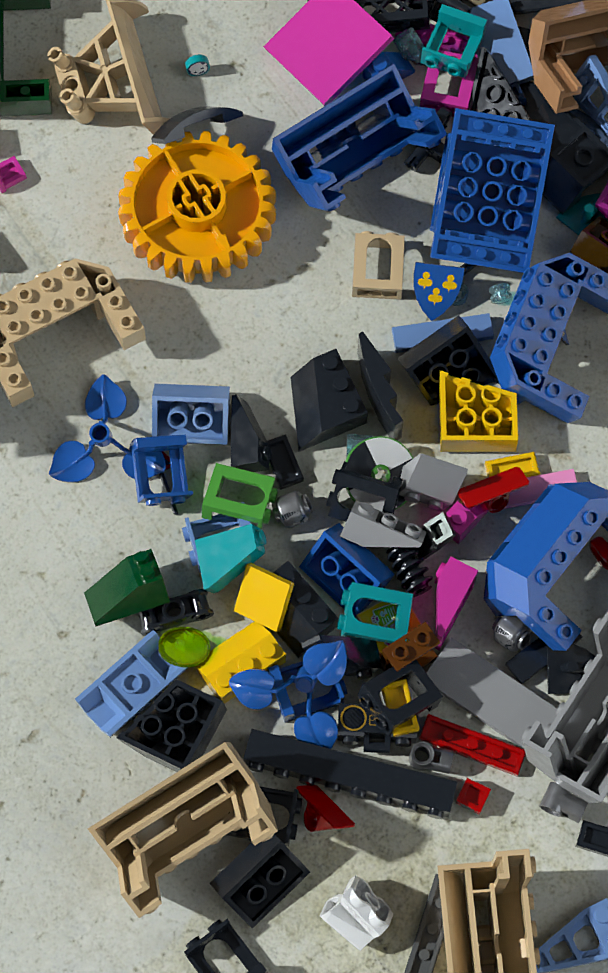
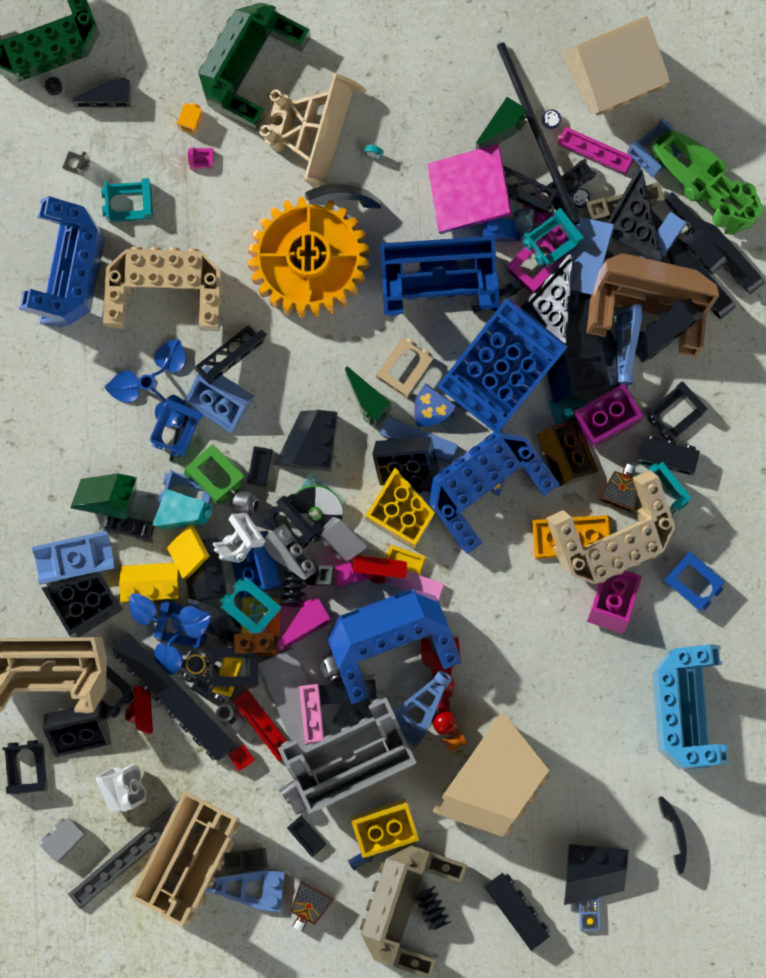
camera: 40 degrees right, 10 degrees up
(179, 358) = (232, 358): none -> black fence
(184, 646) = (120, 553): clear neon green piece -> none
(248, 444) = (244, 439): black slope -> none
(309, 560) = (231, 547): none -> white tile
(357, 314) = (371, 403): none -> dark green slope
(381, 395) = (350, 449): black slope -> none
(500, 293) = (473, 435): clear light blue bush -> none
(520, 694) = (311, 713): none -> bright pink tile
(555, 910) = (245, 860): none -> pearl dark grey slope

